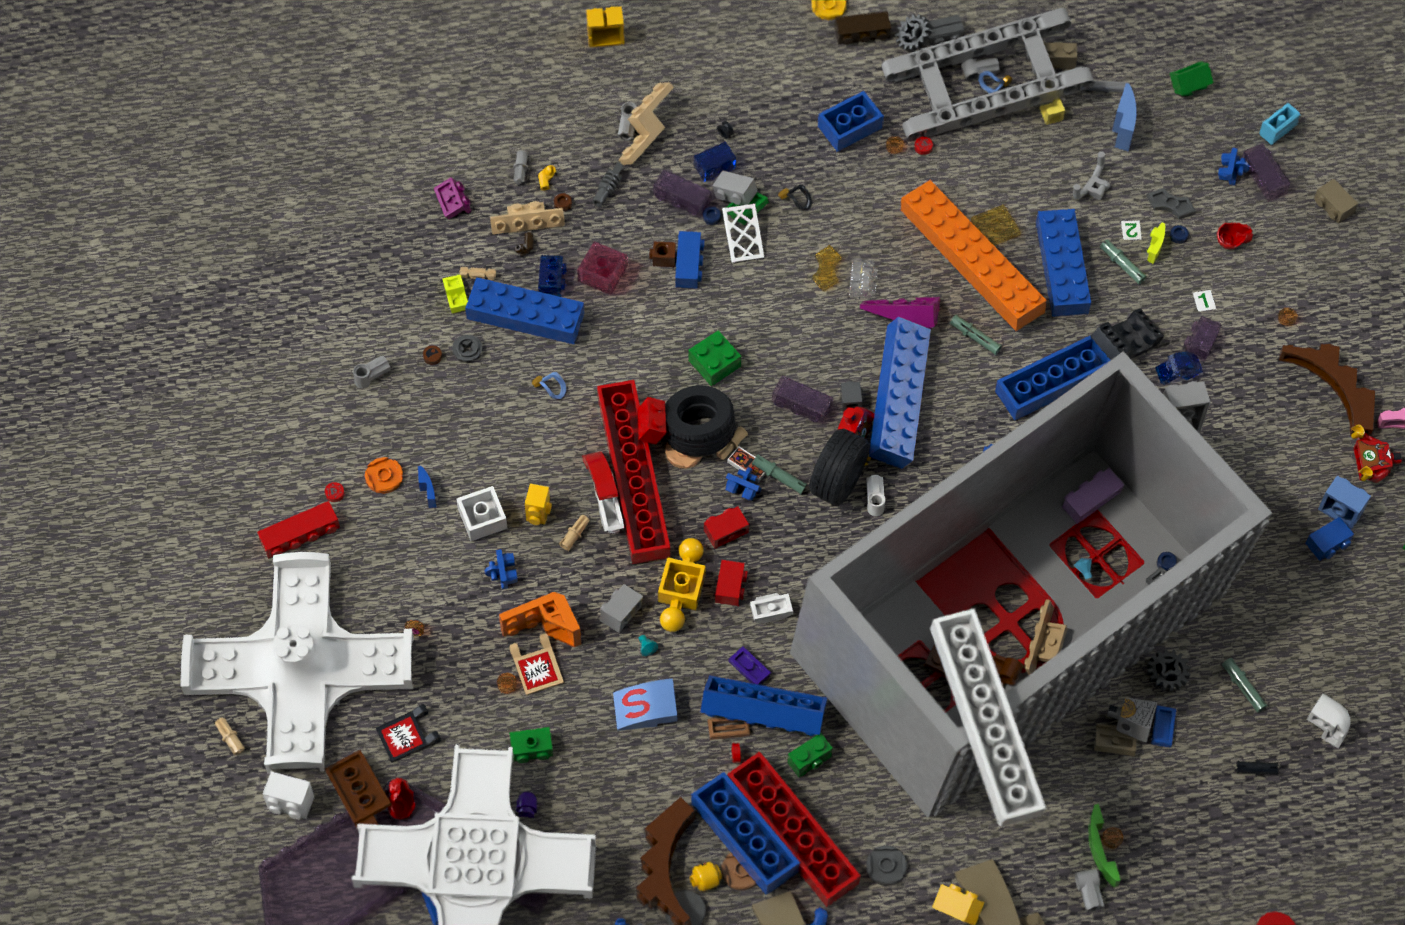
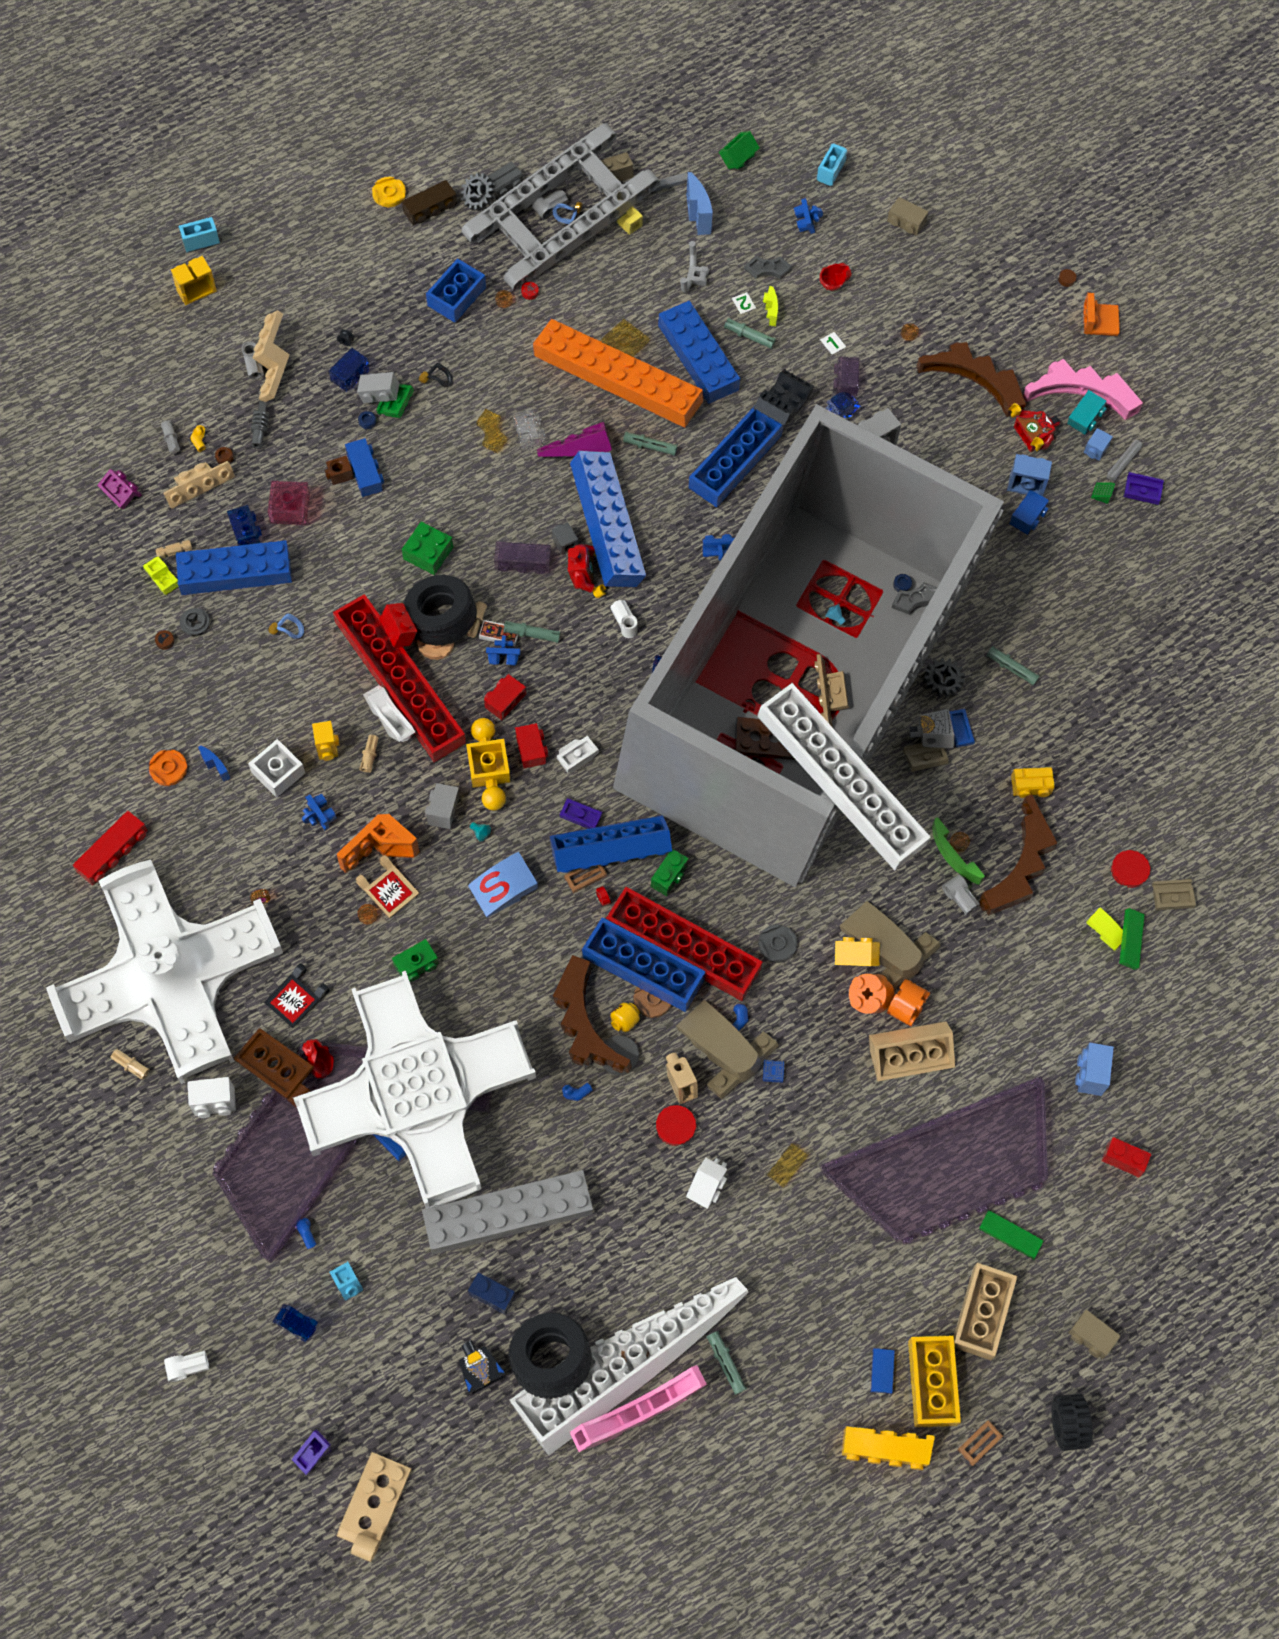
camera: 25 degrees left, 5 degrees up
(334, 492) = (128, 800): red tile -> none
(370, 371) = (114, 675): light grey piece -> none
(526, 804) = (434, 1017): dark purple piece -> none
(528, 245) = (209, 507): dark brown arm -> none
(601, 475) = (373, 691): red slope -> none
(682, 193) = (331, 409): clear purple brick -> none
(754, 222) = (409, 412): white window -> none
(839, 466) = (585, 604): black tyre -> none
(1092, 495) = (815, 548): lavender brick -> none
(1146, 903) = (1036, 841): none -> reddish brown arch
(1179, 234) = (786, 292): dark blue tile -> none
(1212, 807) = (1032, 781): none -> yellow brick
(1257, 767) = (1054, 733): black pin -> none
(1266, 172) = (838, 211): clear purple brick -> none
(1332, 718) = (1100, 666): white brick -> none

